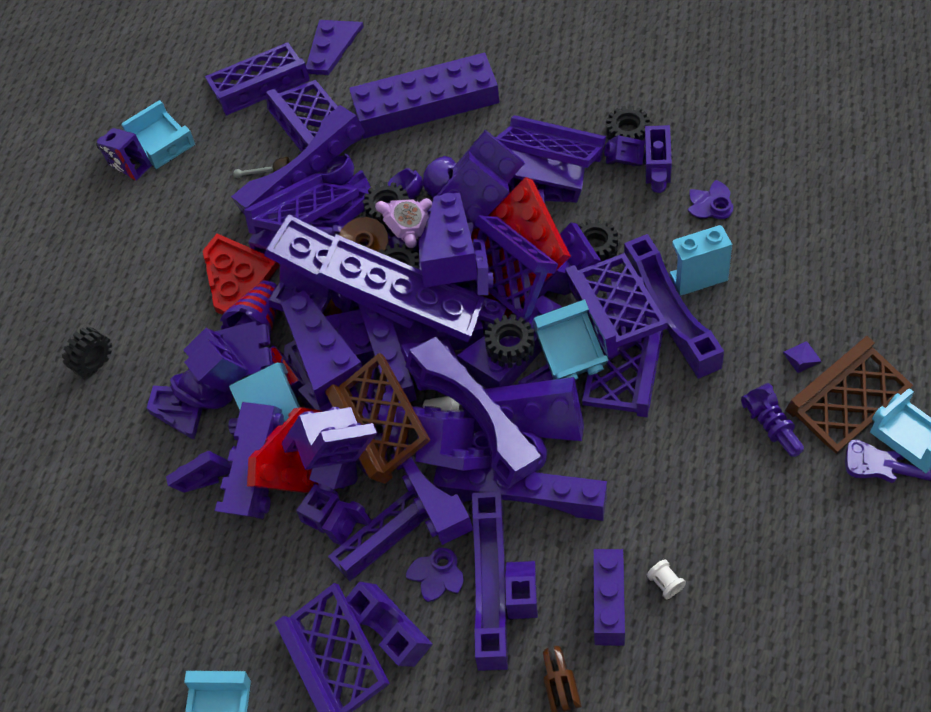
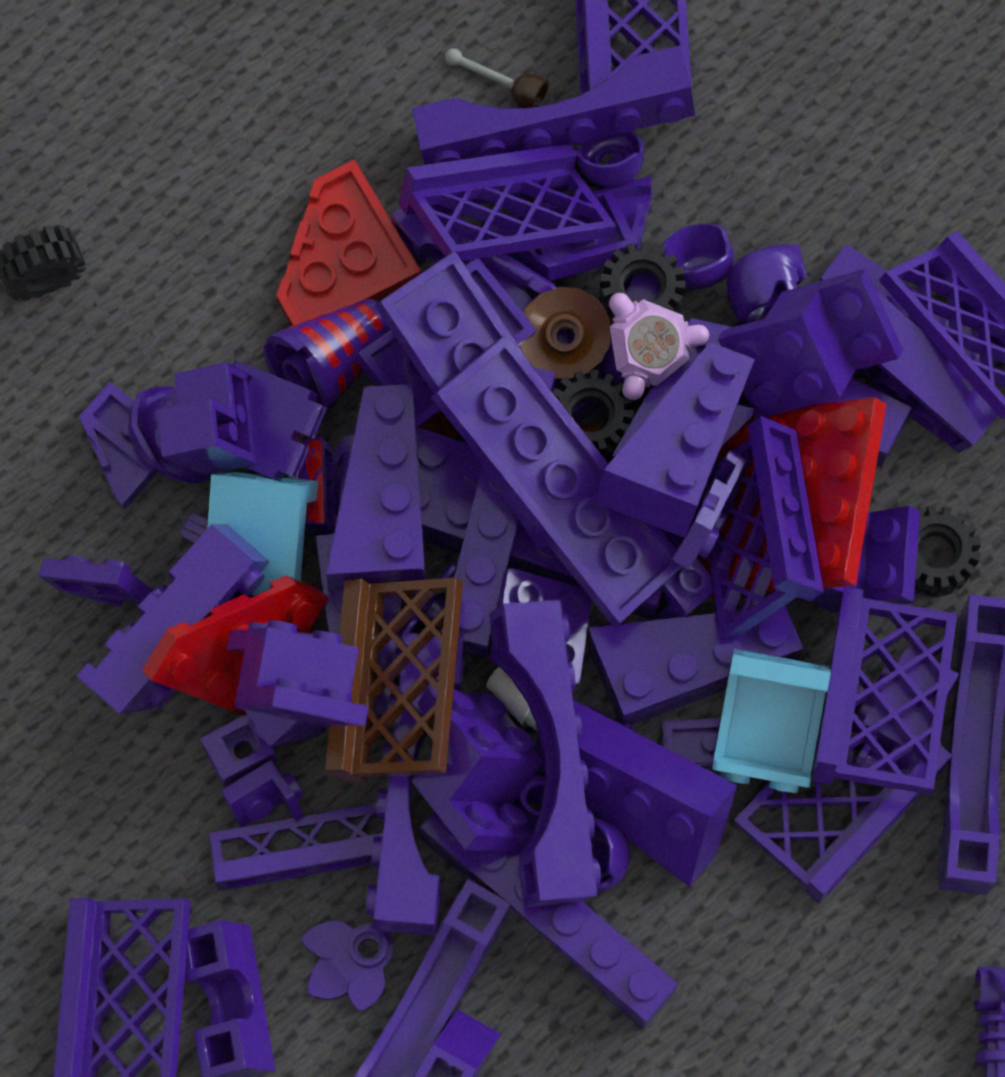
camera: 20 degrees right, 15 degrees up
(425, 95) = (838, 95): dark purple brick -> none
(511, 354) = (684, 635): black tyre -> none

